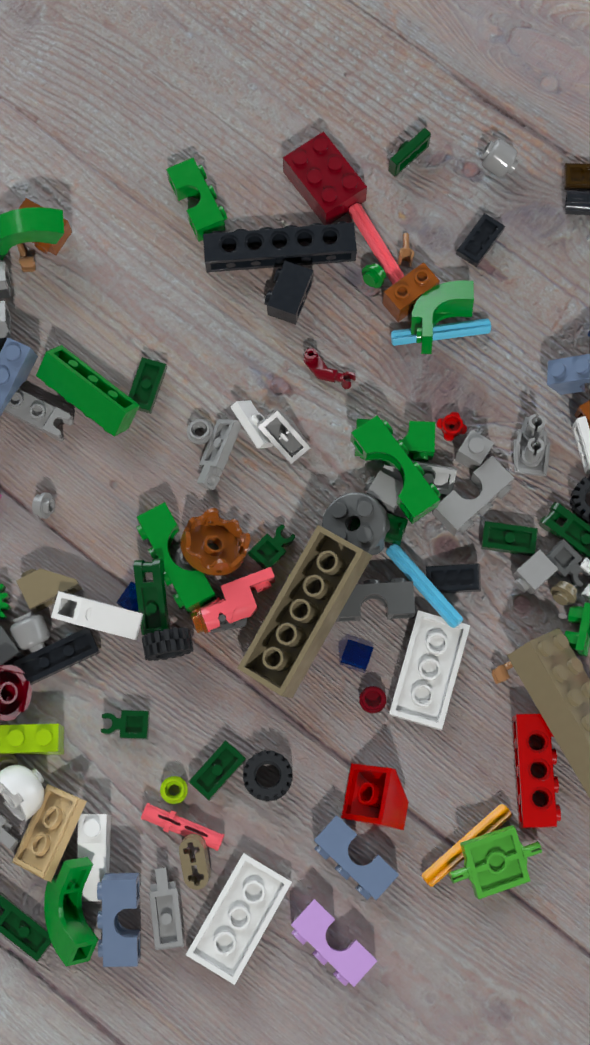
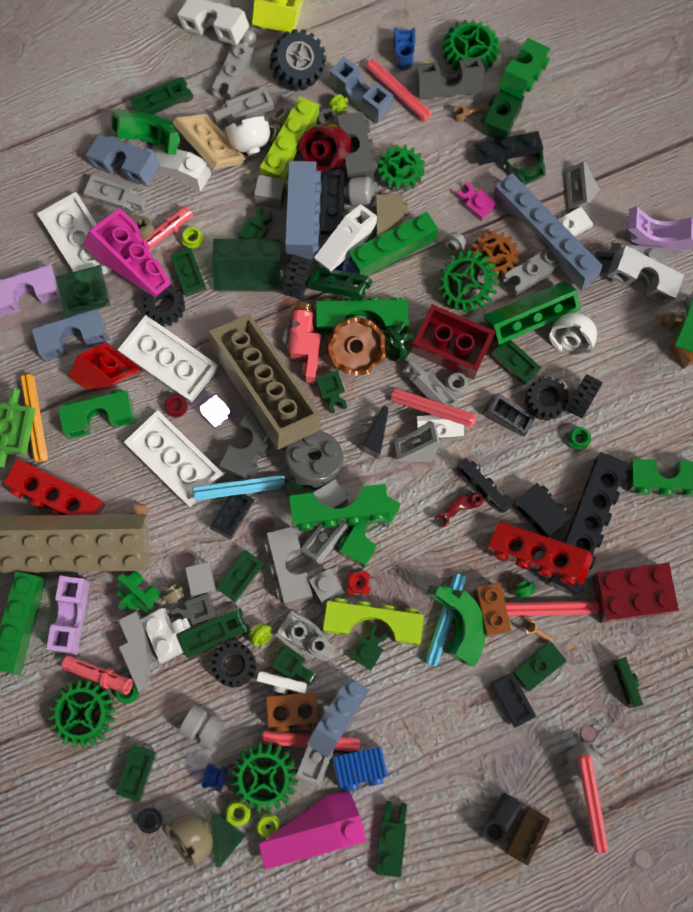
camera: 115 degrees right, 0 degrees up
(27, 459) = (496, 244): none -> dark orange gear
(77, 564) = (394, 244): none -> green brick
(78, 732) = (269, 191): none -> light grey brick
(86, 457) = (470, 273): none -> green gear
(88, 677) = (303, 210): none -> sand blue brick
(89, 339) = (574, 333): none -> white cylinder
(154, 301) = (584, 396): none -> black tyre
(159, 451) = (452, 341): none -> dark red brick
(168, 325) = (546, 385): none -> black tyre
(178, 708) = (247, 265): none -> clear green slope
(188, 506) = (396, 344): none -> dark green piece
(195, 286) = (579, 431): none -> green plate
(206, 384) = (497, 417): none -> black slope
(233, 850) = (122, 249): none -> dark pink wedge
(241, 436) = (434, 408): none -> coral axle
(292, 353) = (484, 486): none -> black plate
(296, 480) = (375, 438): none -> black slope
(303, 867) = (83, 291): none -> clear green slope
(326, 736) = (168, 359): none -> white plate
(327, 229) = (507, 536): none -> red brick
(436, 232) = (540, 666): none -> dark green plate
(441, 796) = (77, 415): none -> green arch
(492, 420) = (342, 617): none -> lime arch
(509, 386) = (368, 650): none -> dark green plate
(532, 133) = (592, 803): none -> coral axle
(553, 489) = (260, 634): none -> lime plate
(563, 447) = (291, 664): none -> dark green plate

